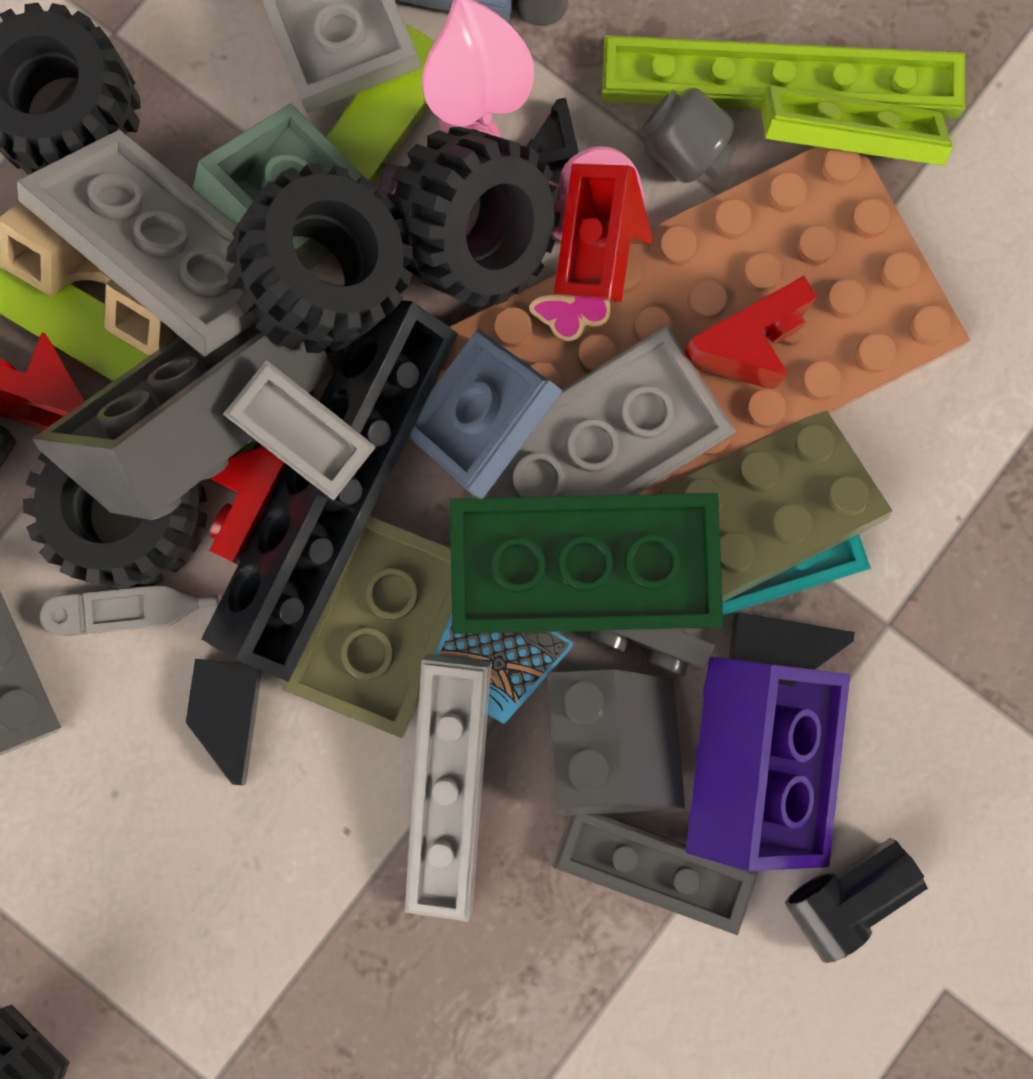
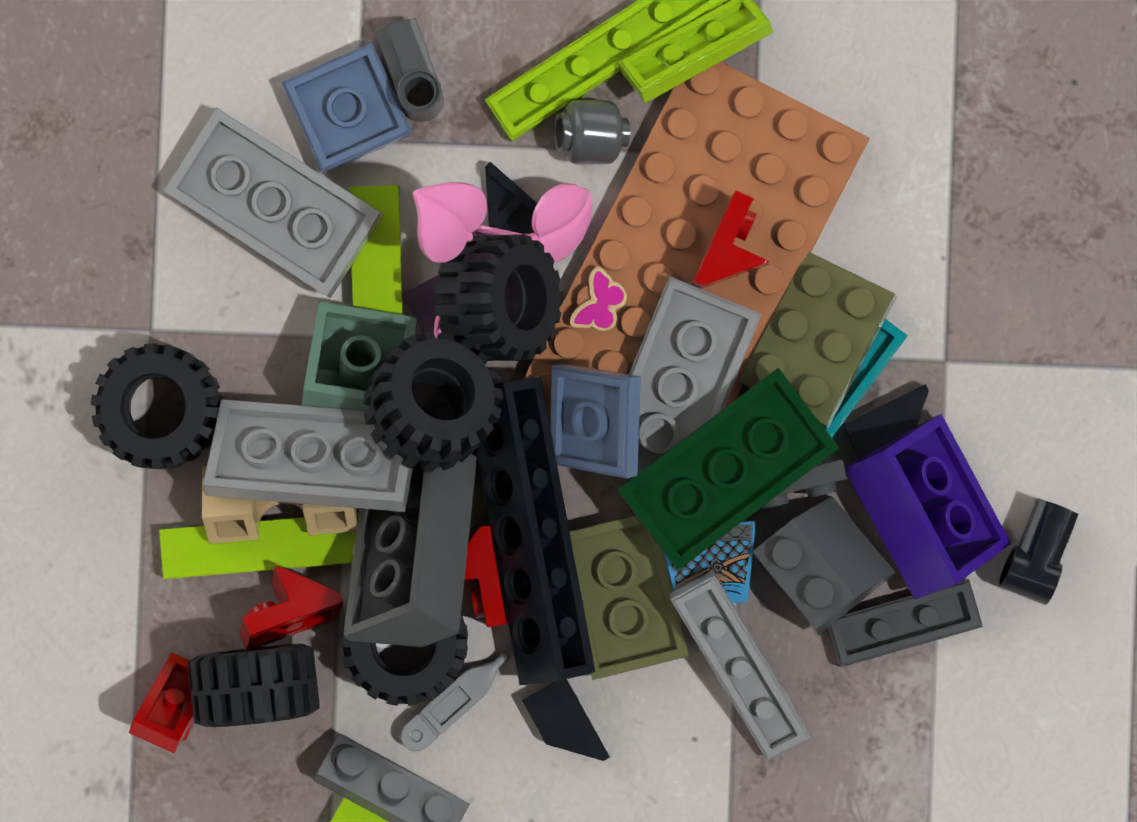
camera: 35 degrees left, 5 degrees up
(299, 430) = (498, 515): light grey tile -> none
(599, 225) = (582, 245): red slope -> none

